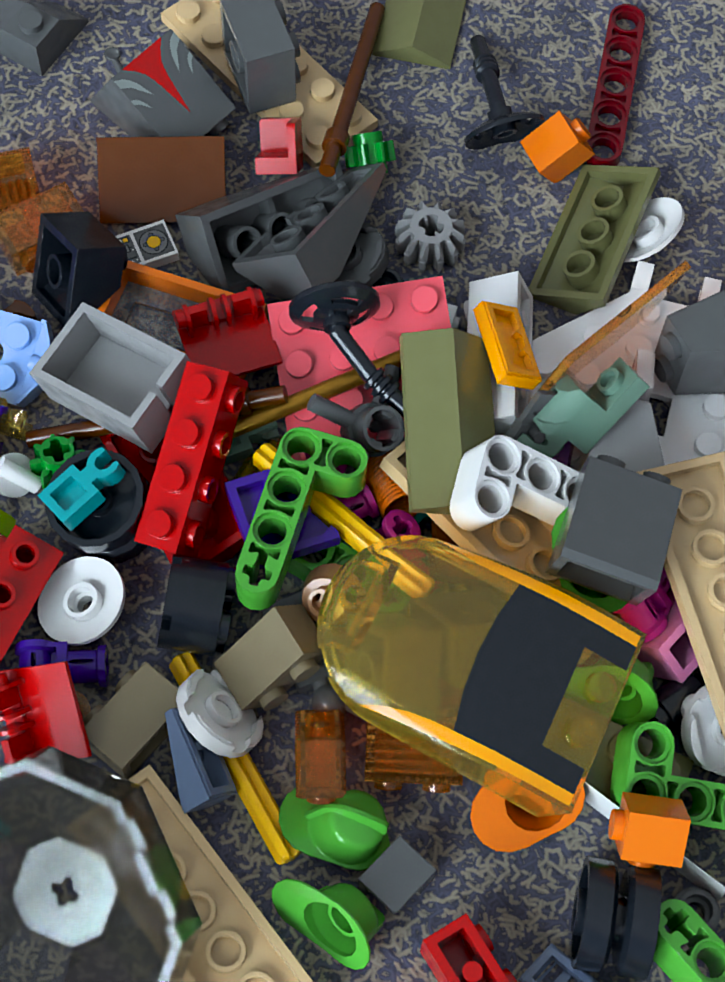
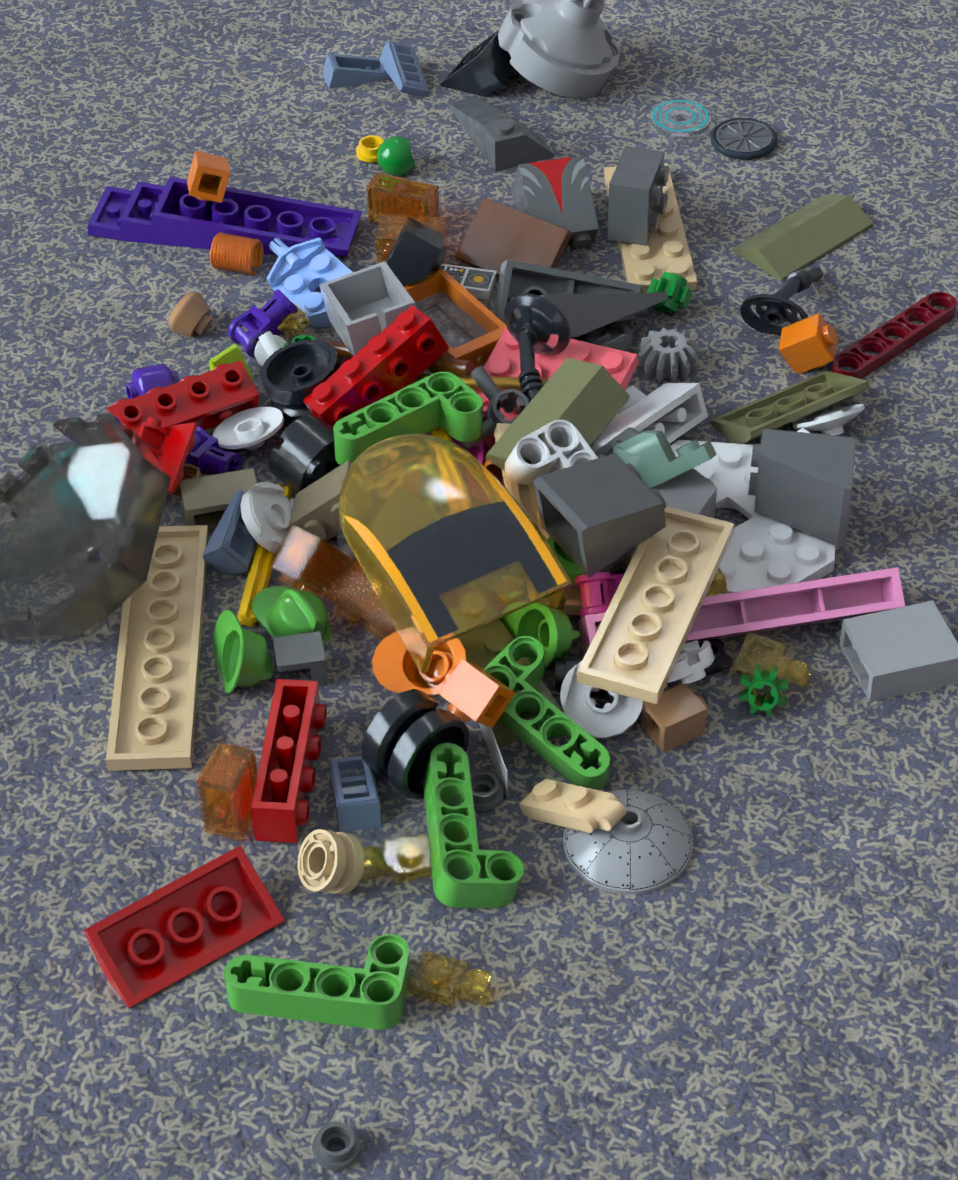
camera: 40 degrees right, 20 degrees down
(78, 492) = (290, 353): teal plate -> none
(228, 333) = (467, 330): red hinge -> none
(280, 146) = (613, 262): panel -> none
(337, 136) = (649, 267): reddish brown bar -> none
(507, 345) = (640, 402): light orange plate -> none
(615, 328) = (726, 419): clear orange piece -> none
(644, 365) = (731, 481): white tile -> none

